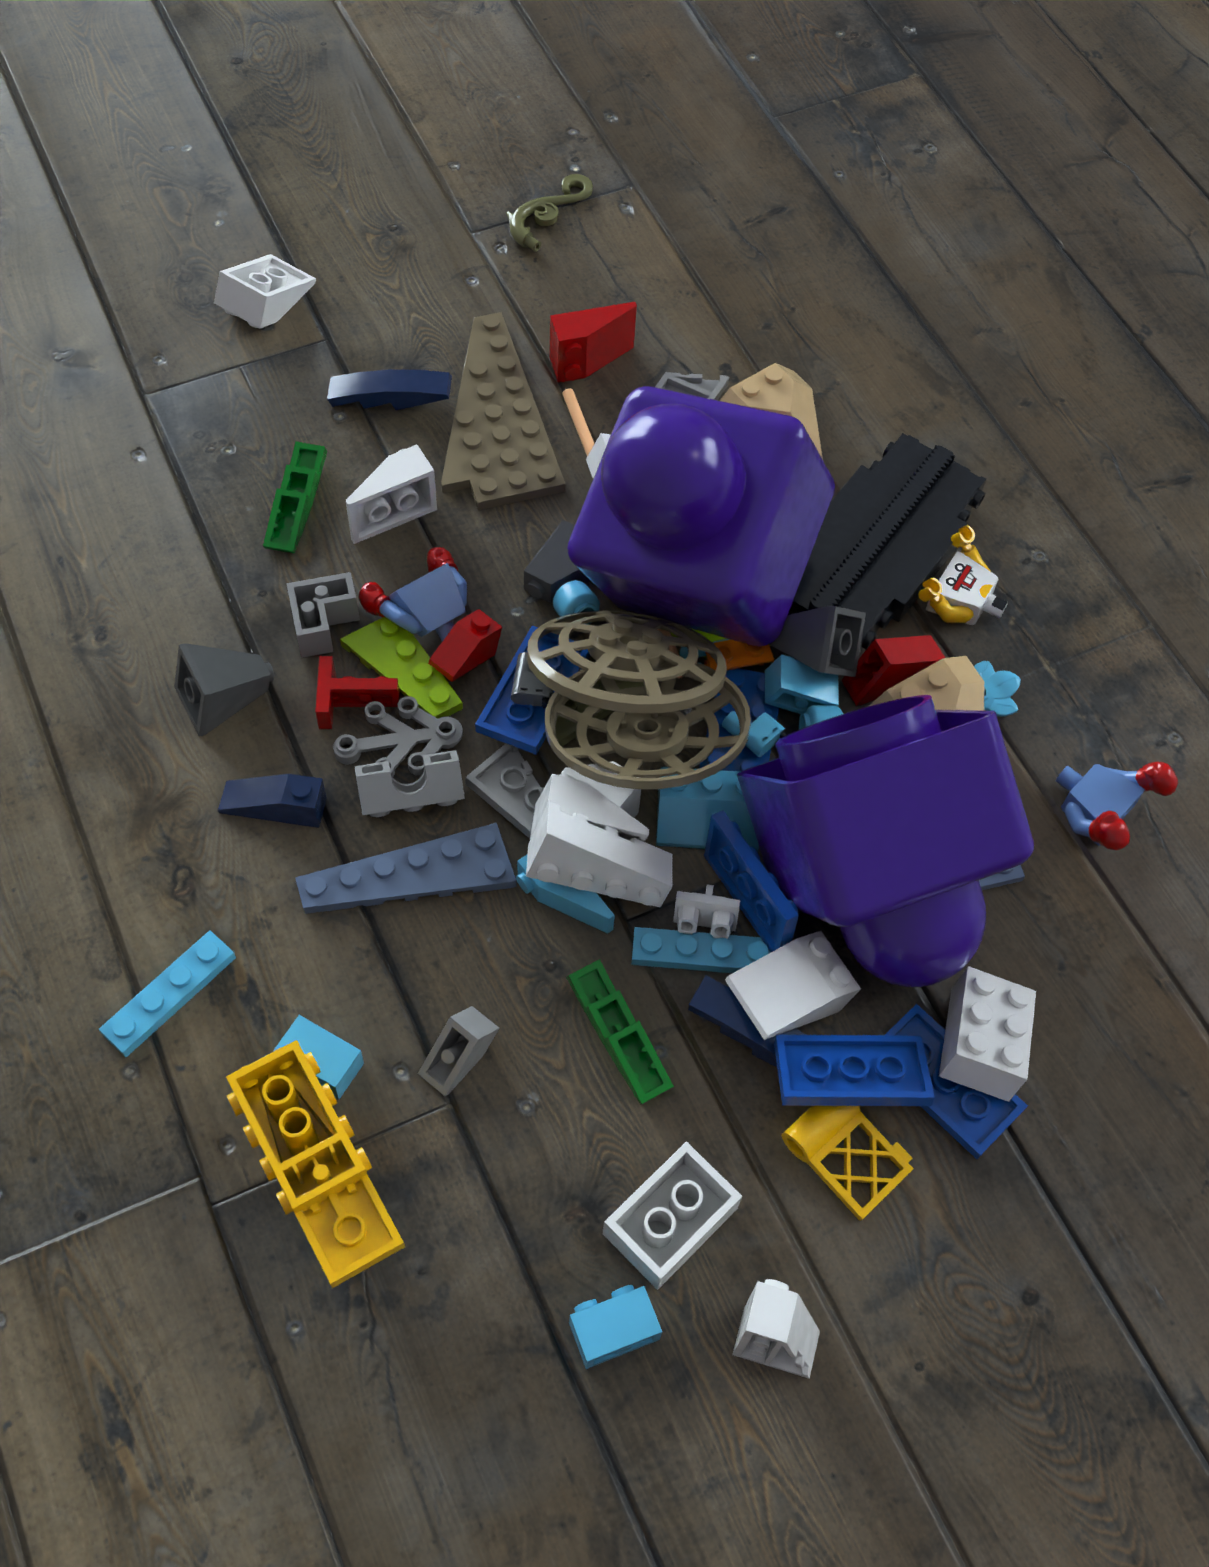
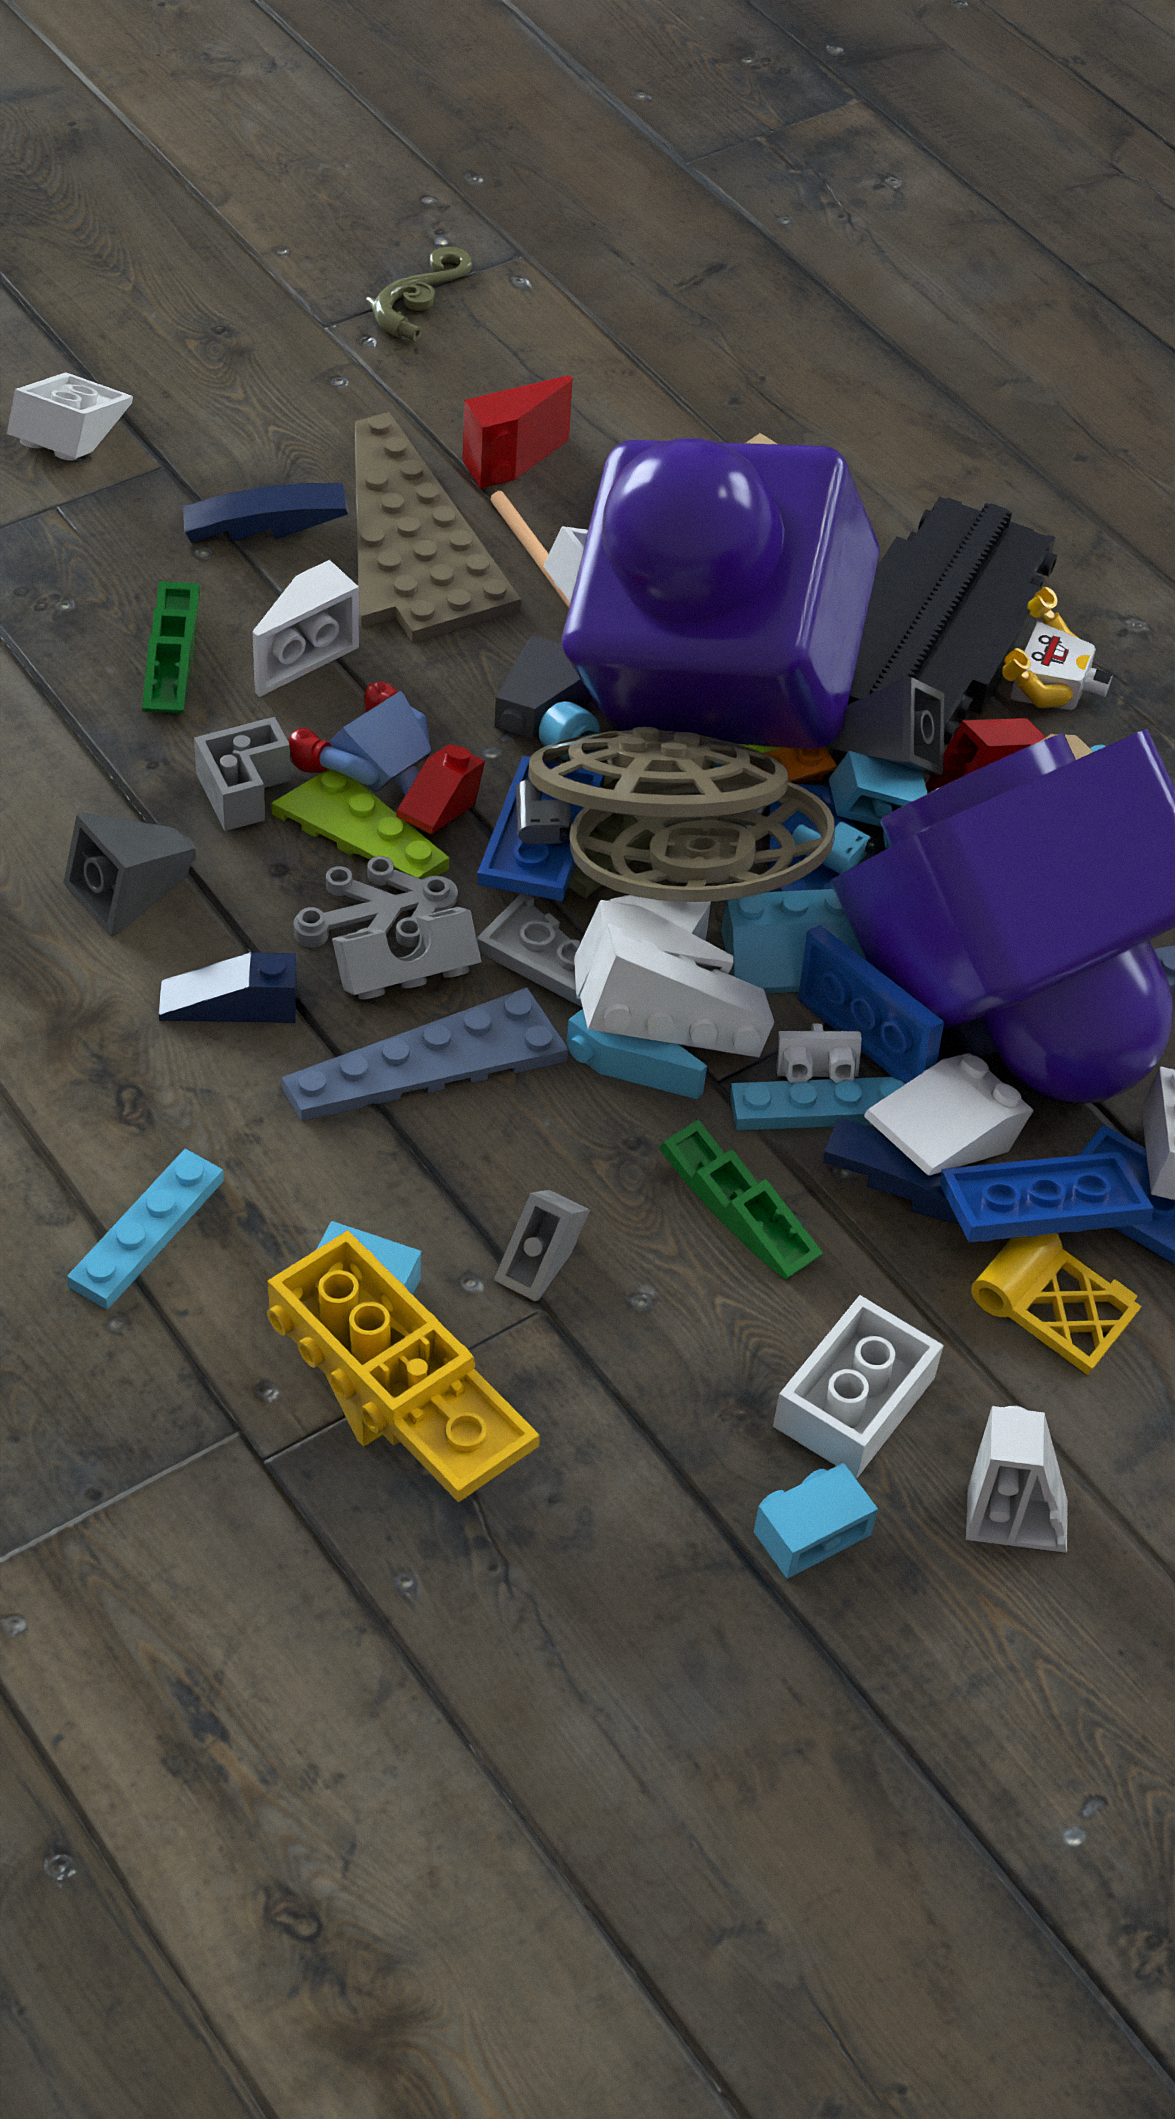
camera: 10 degrees left, 10 degrees down
(349, 692) = (302, 859): red bracket -> none

